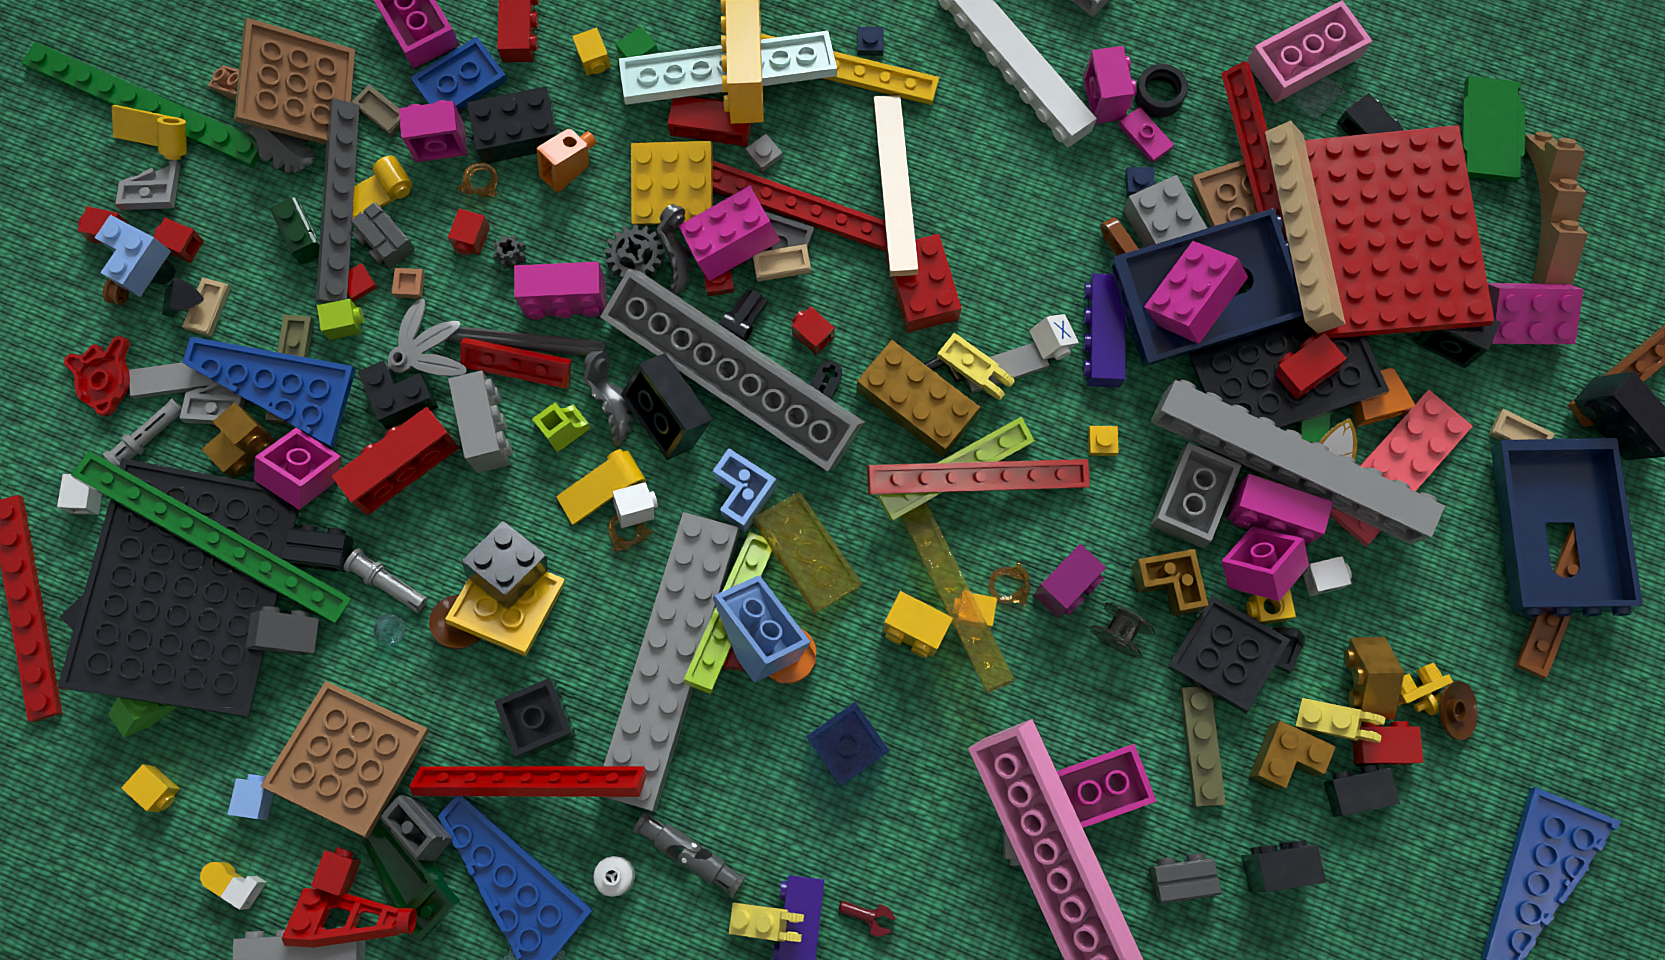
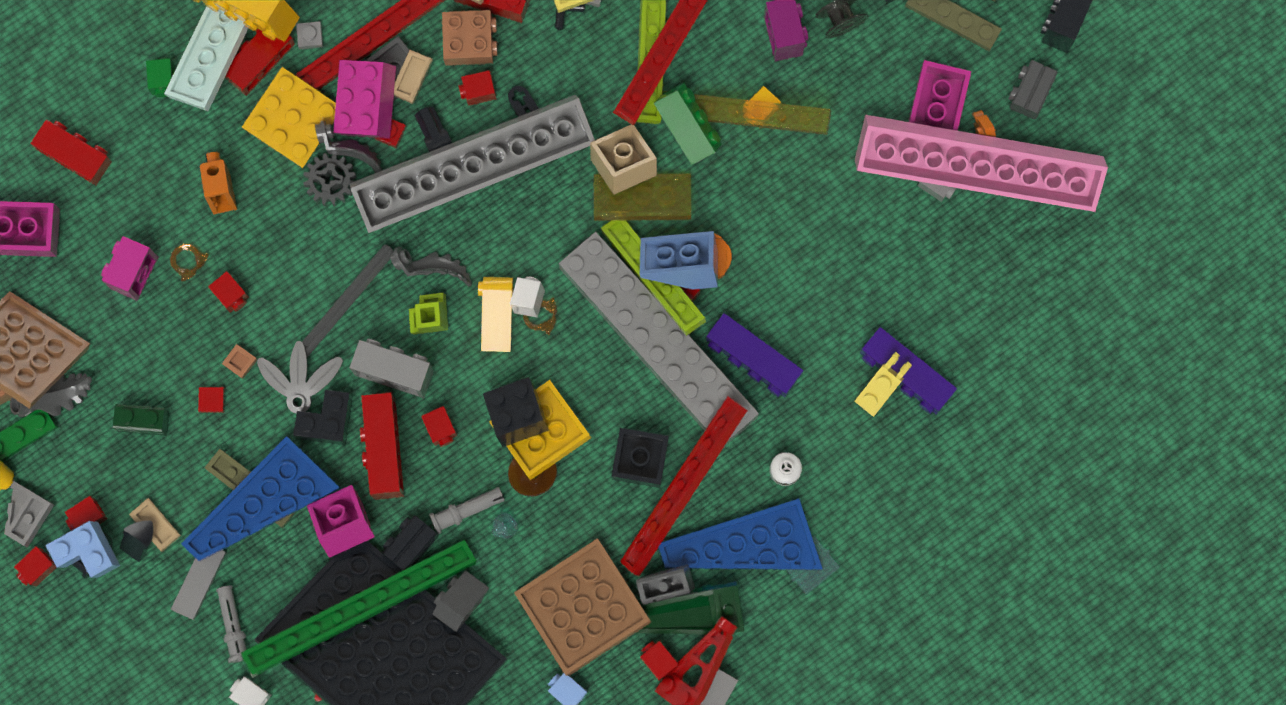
camera: 55 degrees left, 5 degrees up
(101, 376) = (162, 633): red tile -> none
(114, 293) = (98, 586): dark orange bush -> none
(207, 403) = (243, 561): light grey wing -> none
(237, 442) = (288, 556): pearl gold brick -> none
(337, 202) = (137, 375): dark grey plate -> none
(340, 319) = (236, 427): lime brick -> none
(378, 110) = (75, 302): dark tan tile -> none
(382, 188) = (143, 347): yellow door -> none
(382, 235) = (186, 359): dark grey brick -> none
(453, 503) = (439, 427): none -> red brick
(460, 75) = (90, 225): blue plate -> none
(507, 245) = (260, 276): dark grey gear -> none
(512, 124) = (162, 206): black brick -> none
(515, 363) = (358, 318): red plate -> none
(560, 289) = (326, 249): dark pink brick -> none
(591, 52) = (138, 111): yellow brick -> none
(666, 406) = (470, 227): black brick -> none
(707, 866) = (809, 406): dark grey piece -> none
(714, 767) = (754, 355): none -> dark purple brick
(749, 485) = (567, 206): light blue brick -> none
(830, 508) = (623, 159): none -> tan brick
(847, 744) = (798, 254): clear blue brick -> none
(855, 290) = (468, 37): none -> nougat brick
(868, 916) = (922, 315): dark red bar -> none
(907, 547) = (688, 123): none -> brick
(916, 625) = (746, 153): yellow brick -> none
(917, 398) = (580, 46): pearl gold brick -> none
(1016, 572) = (752, 60): clear orange piece -> none
(1109, 851) = (983, 124): none -> orange plate

